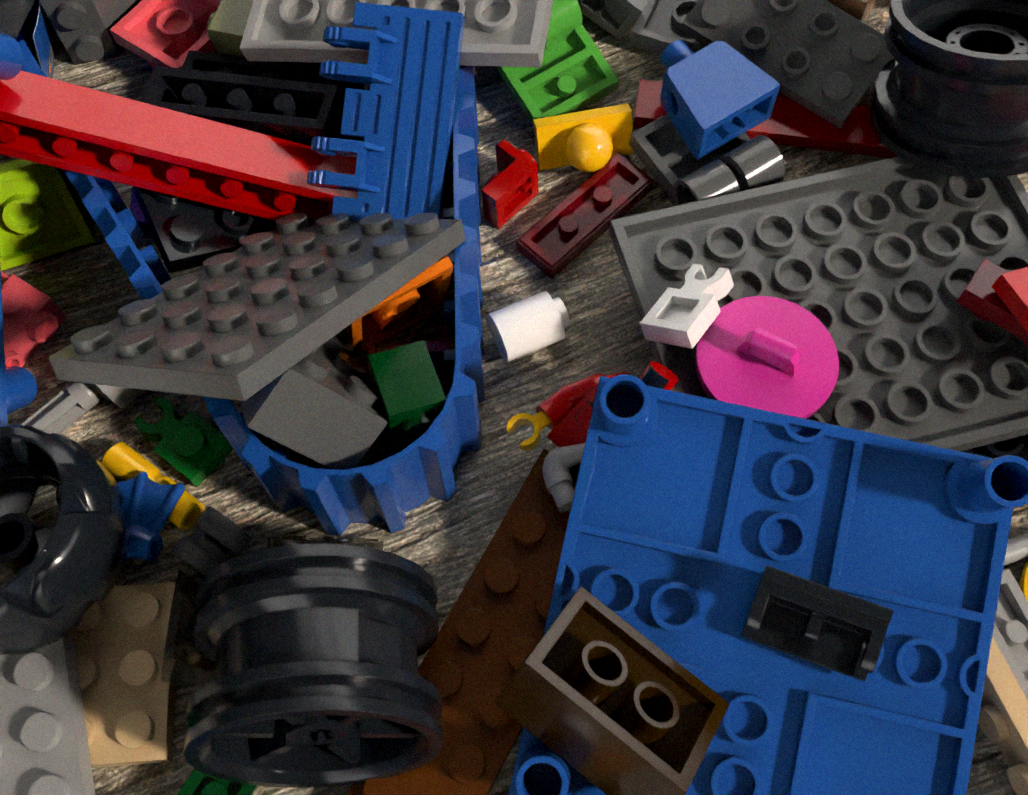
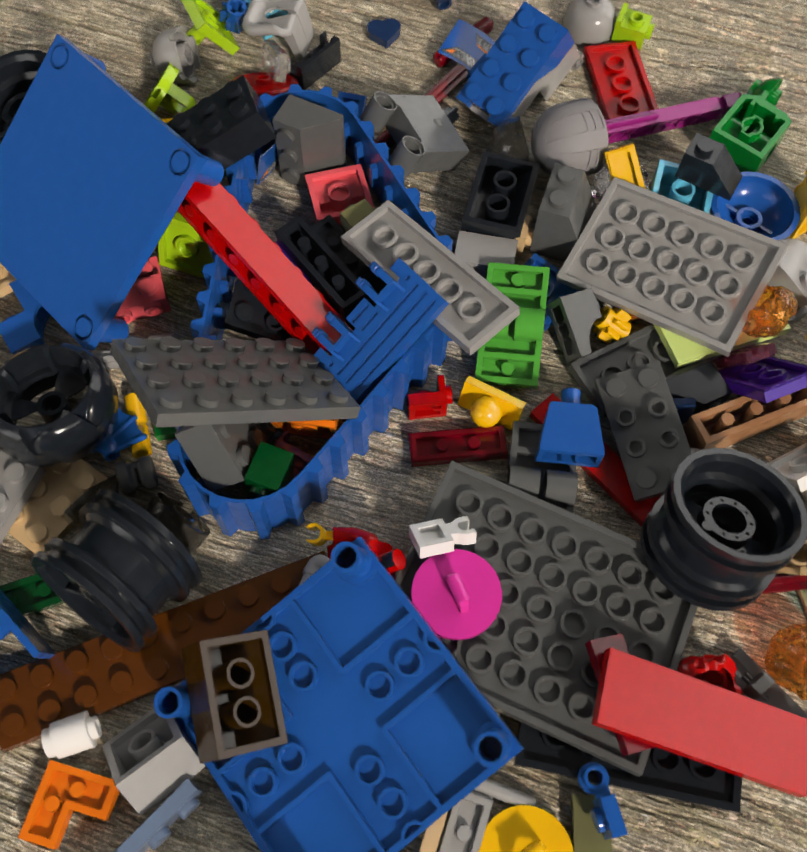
camera: 35 degrees right, 0 degrees up
(528, 325) = (372, 482): white brick -> none
(817, 623) = (354, 738): black hinge -> none

